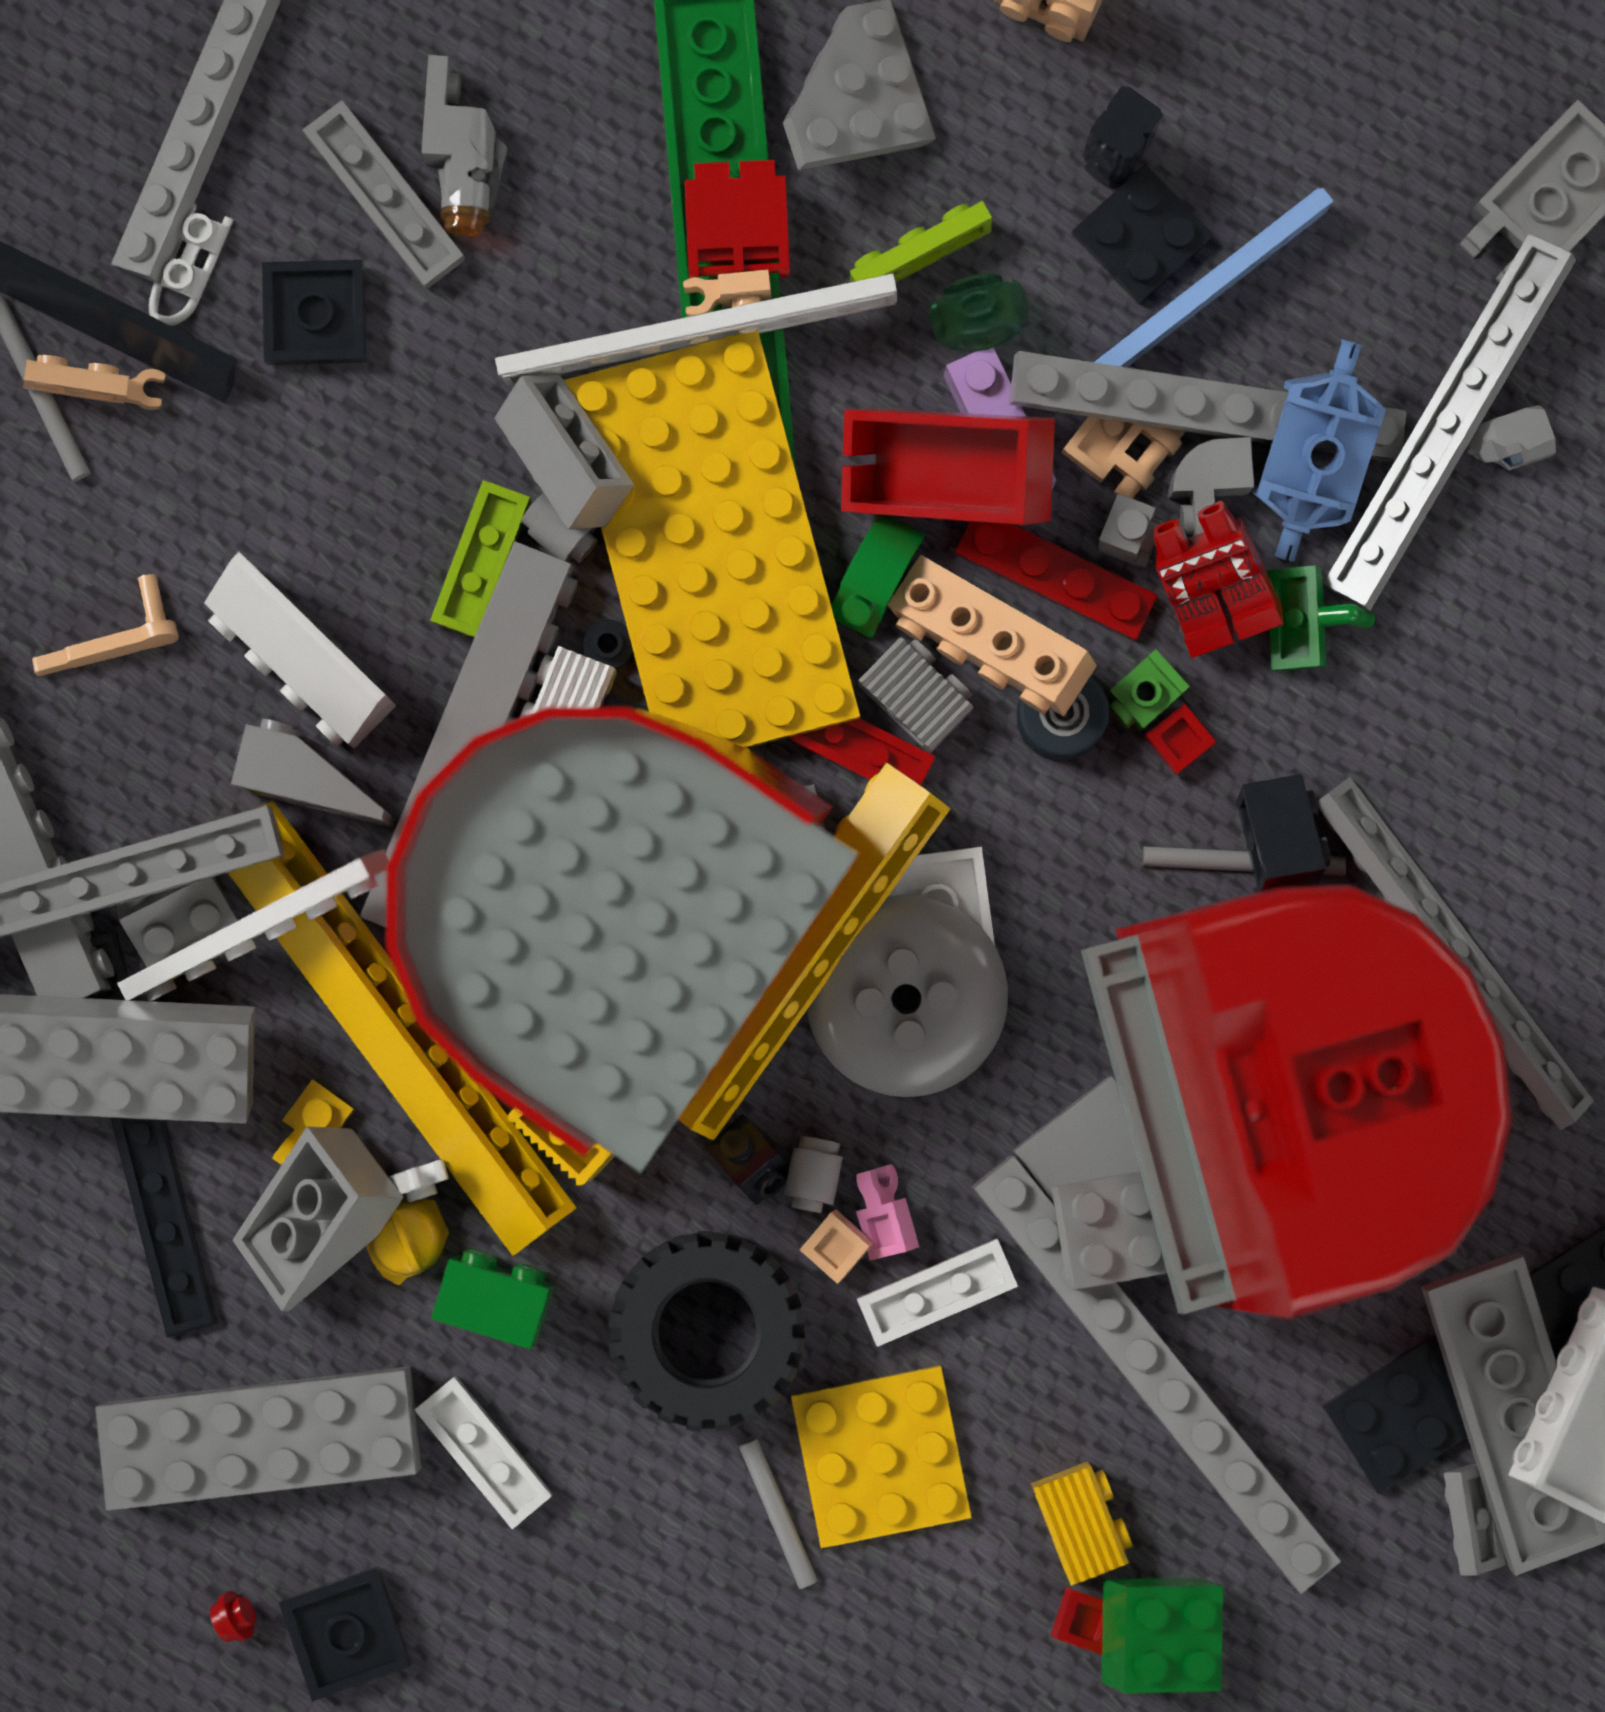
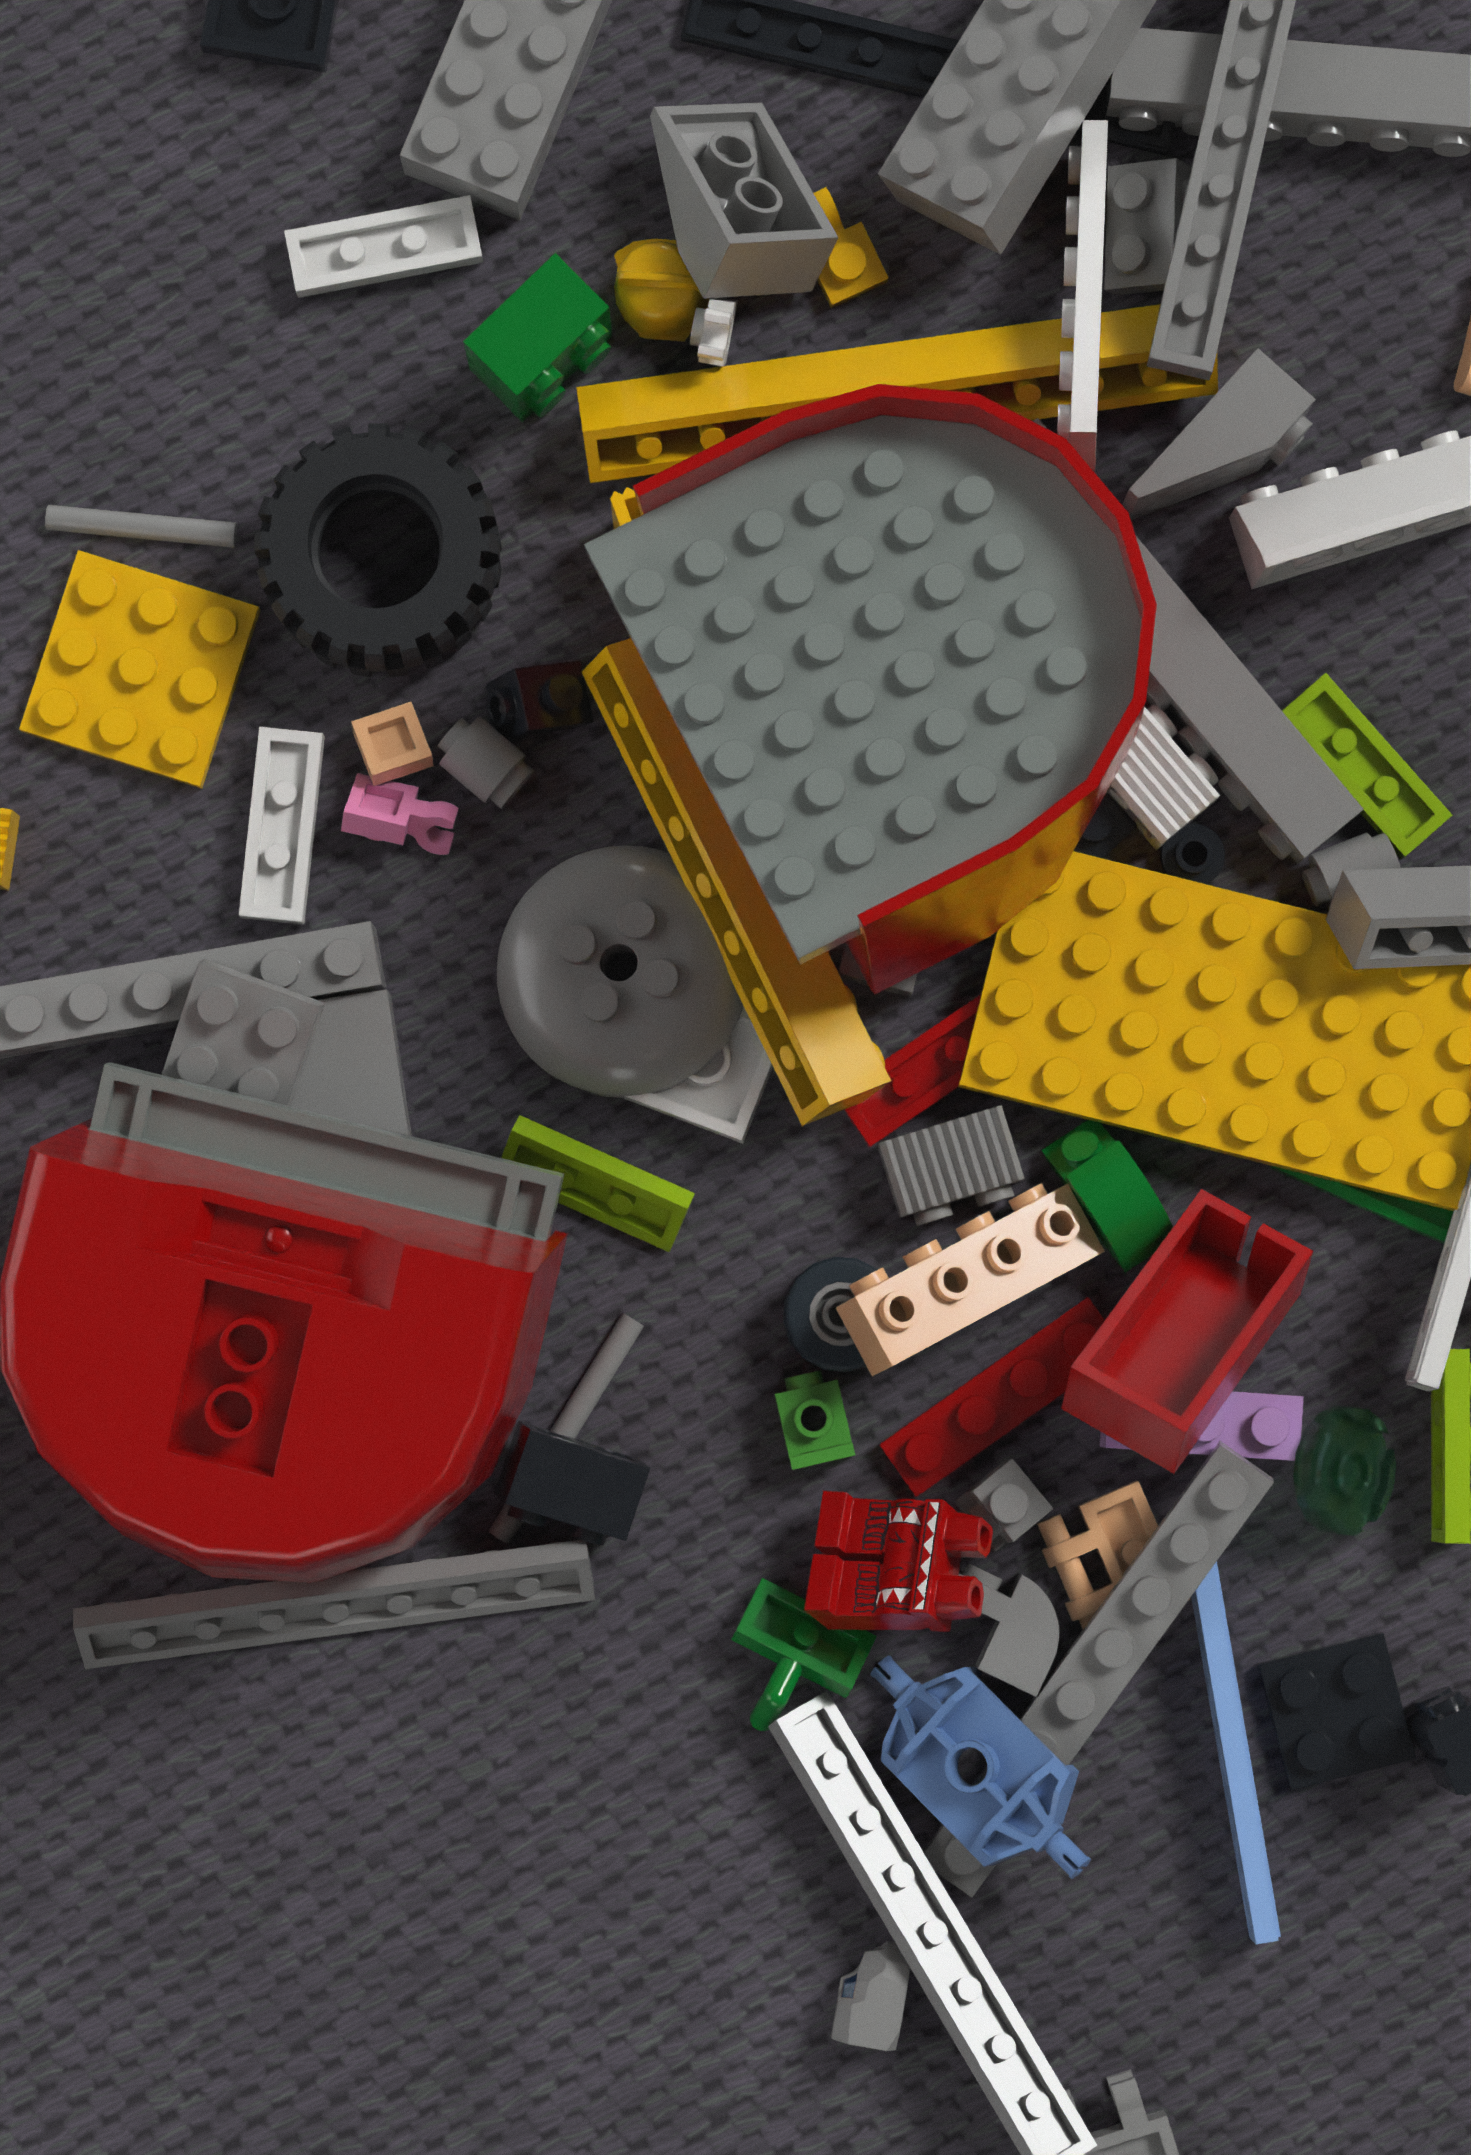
camera: 120 degrees right, 0 degrees up
(1064, 931) = (603, 1184): none -> lime plate
(1179, 739) = (740, 1431): red plate -> none

